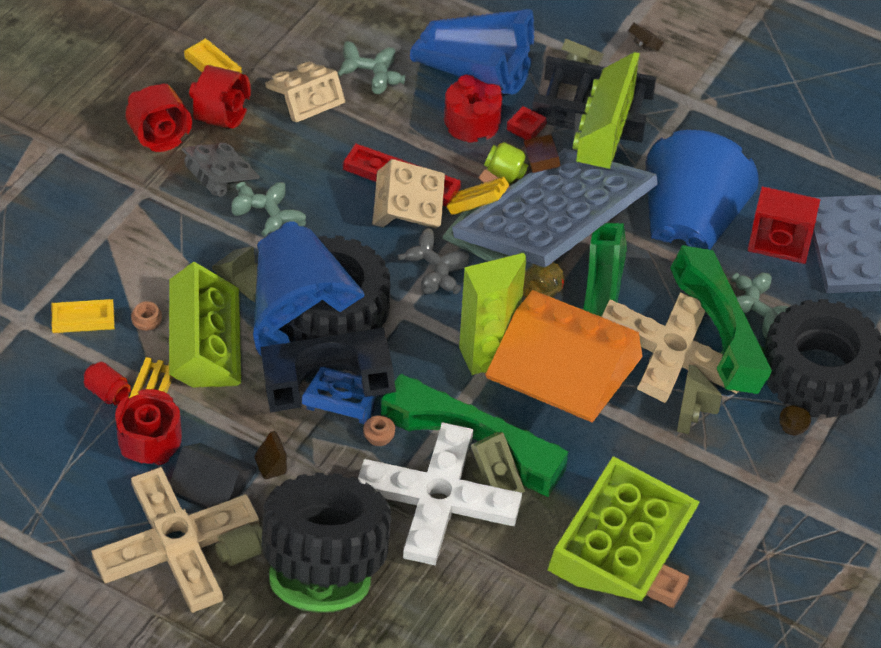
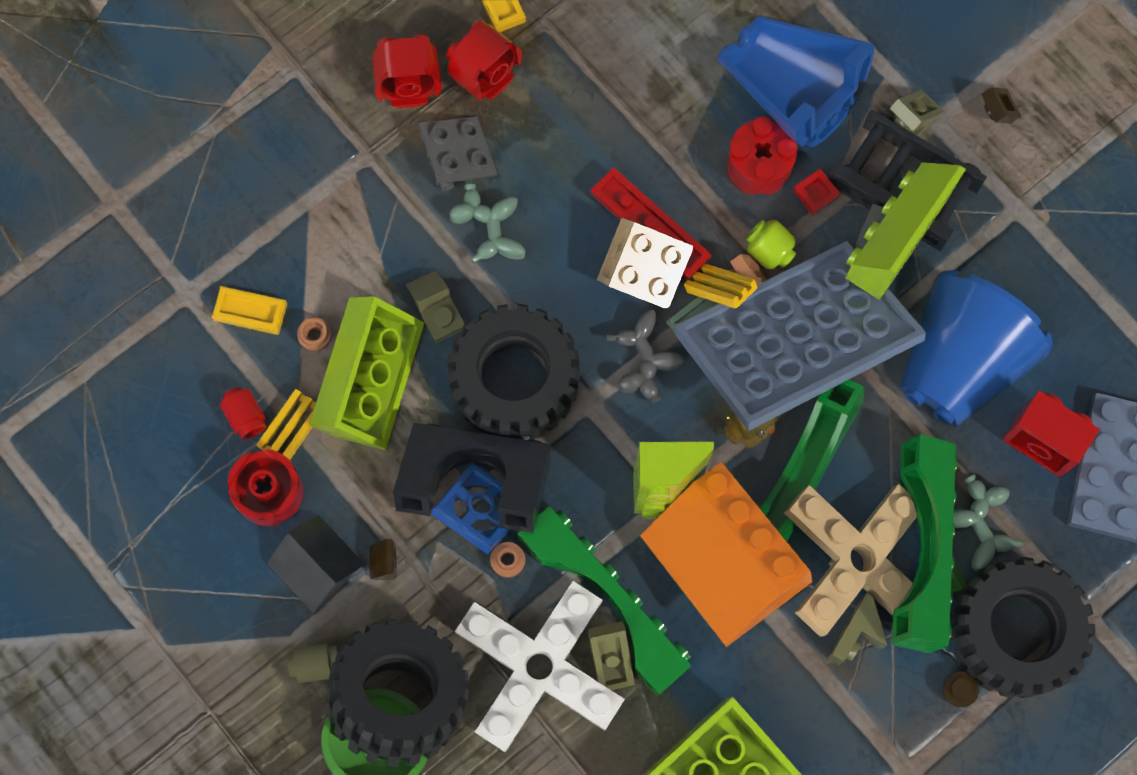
camera: 20 degrees right, 25 degrees up
(182, 554) = (280, 631): tan piece -> none
(294, 276) = (474, 361): blue cone -> none
(308, 90) = (586, 70): tan bracket -> none
(379, 66) = (678, 58): sand green piece -> none
(542, 153) = (816, 243): reddish brown tile -> none

